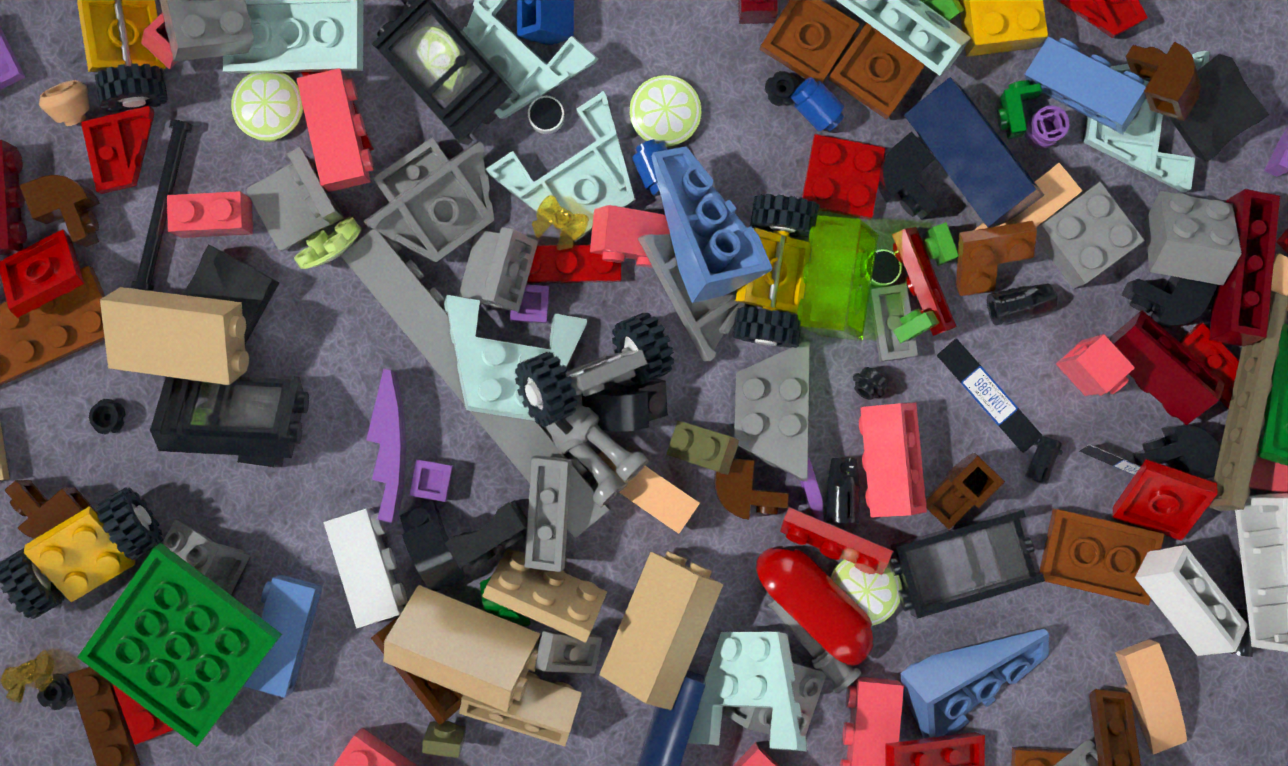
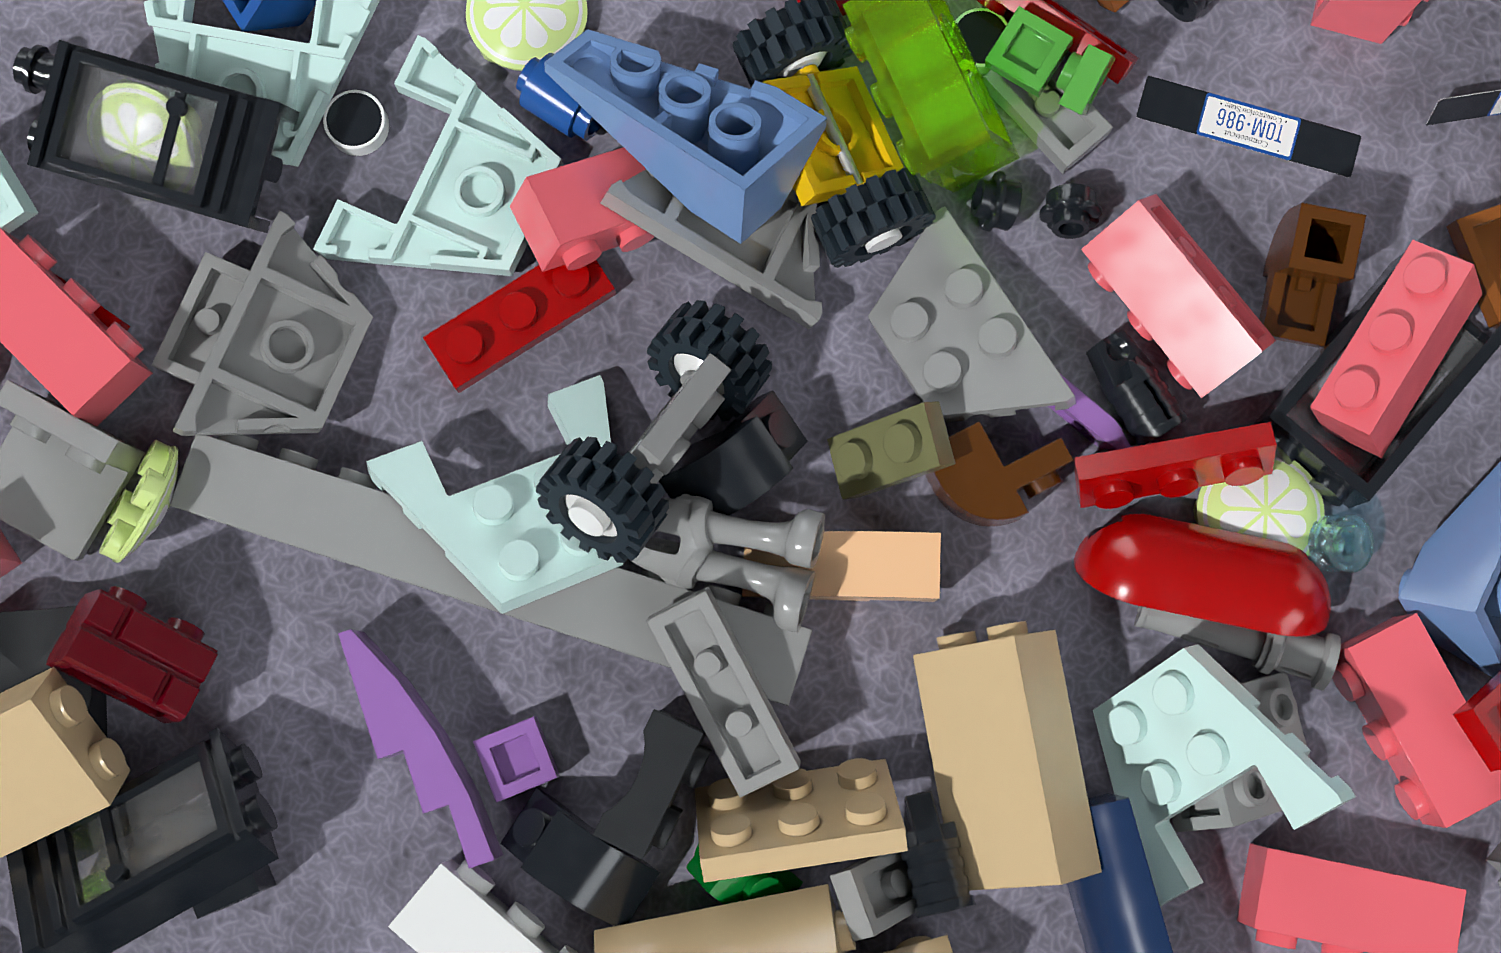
camera: 30 degrees left, 5 degrees down
(281, 318) = (133, 654): none -> dark red brick
(498, 268) = (422, 376): light grey bracket -> none
(533, 305) = (501, 404): medium lavender plate -> none
(550, 213) = (491, 249): clear yellow piece -> none
(597, 654) = (934, 859): none -> black hinge
(836, 356) = (996, 202): none -> black plate
(885, 625) = (1341, 543): none -> clear light blue bush
(898, 293) = (1028, 51): none -> bright green plate
(979, 554) = (1397, 348): none -> coral brick
(1044, 459) = (1388, 164): black pin -> none

